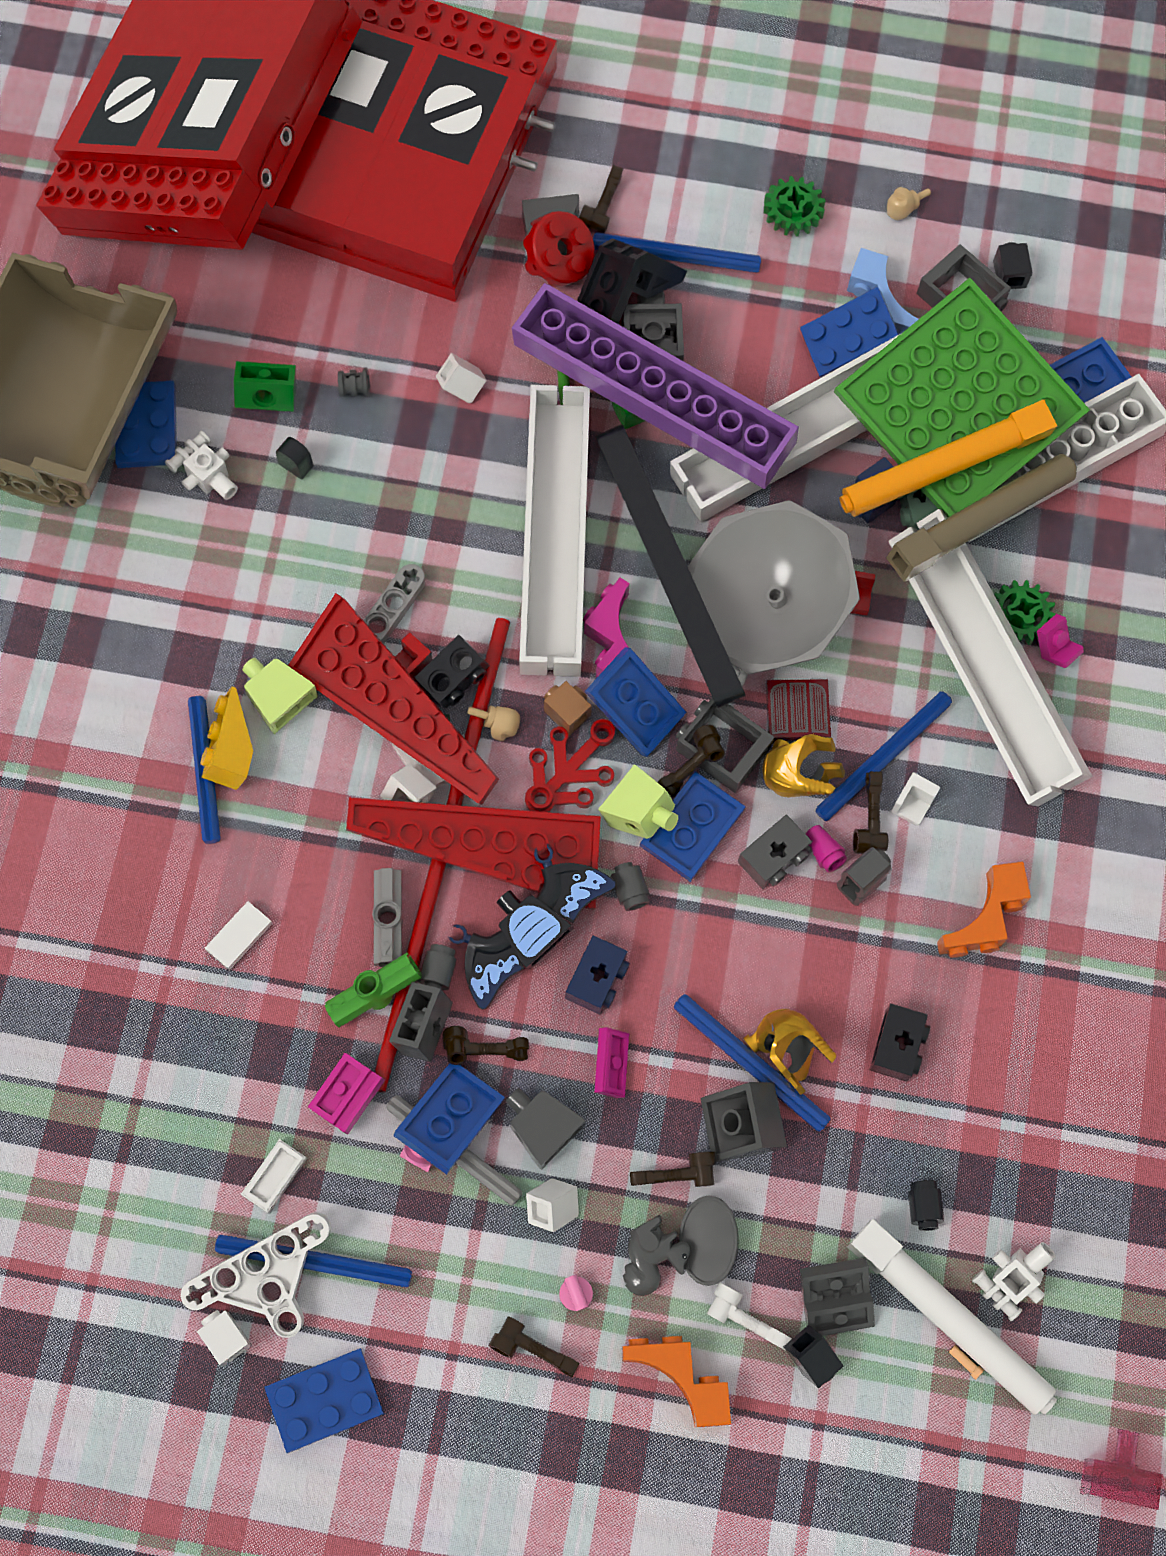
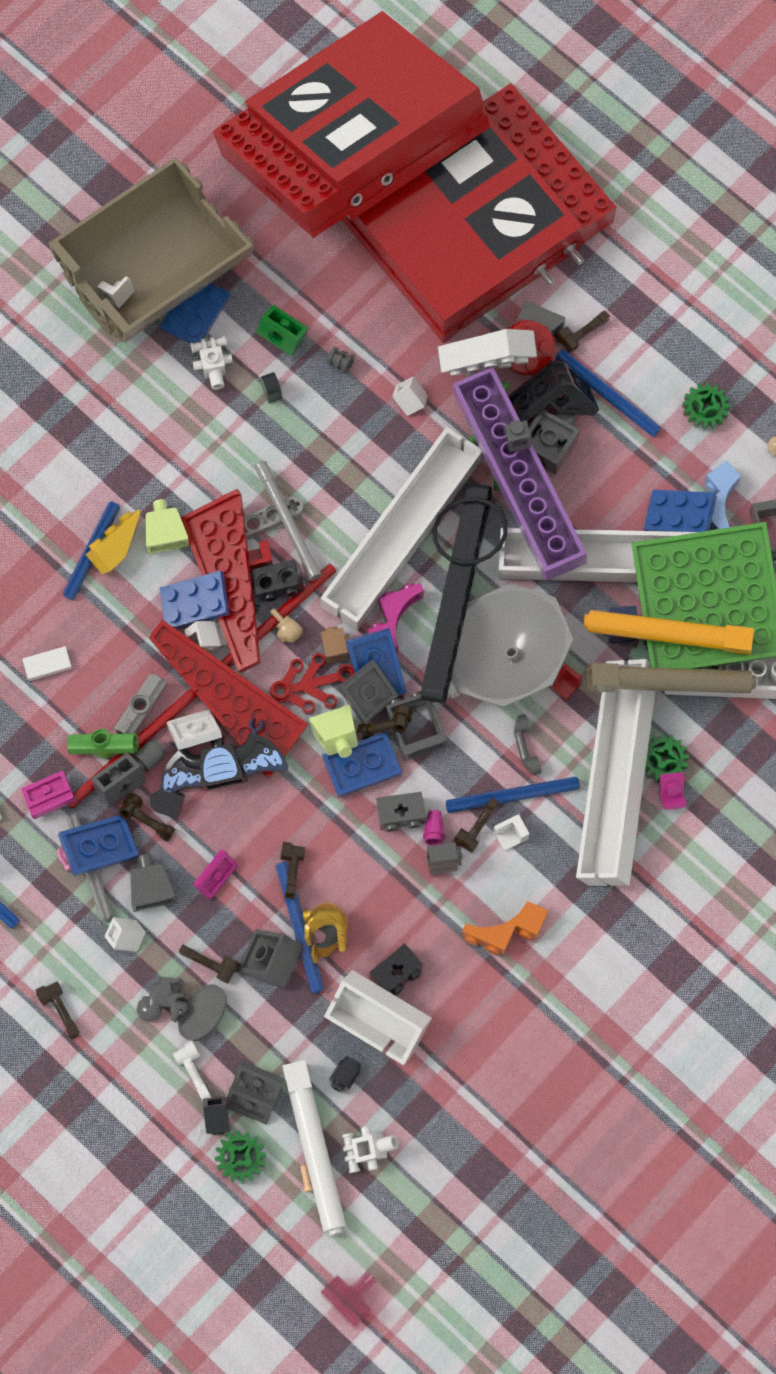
camera: 35 degrees right, 0 degrees up
(43, 447) = (118, 292): none -> white panel
(370, 752) = (195, 600): none -> plate
(472, 629) = (307, 560): none -> light grey piece
(472, 905) = (194, 729): none -> white tile
(496, 1012) = (167, 802): none -> black piece
(524, 272) = (487, 351): none -> white brick
(576, 1293) = (105, 993): bright pink plate -> none
(597, 956) = (247, 807): dark blue brick -> none
(627, 335) = (515, 432): none -> dark grey brick
(631, 886) = (298, 777): dark grey brick -> none
(646, 736) = (368, 691): none -> dark grey plate
(660, 520) = (476, 561): none -> black piece
(673, 1357) = (138, 1100): orange arch -> none
(687, 980) = (293, 855): none -> dark brown brick
(783, 765) = (439, 763): pearl gold piece -> none
(798, 708) = (478, 733): tile -> none
(883, 708) = (531, 764): none -> dark grey bar
(889, 1390) = (233, 1165): none -> green gear
(918, 1108) = (377, 1017): none -> white piece

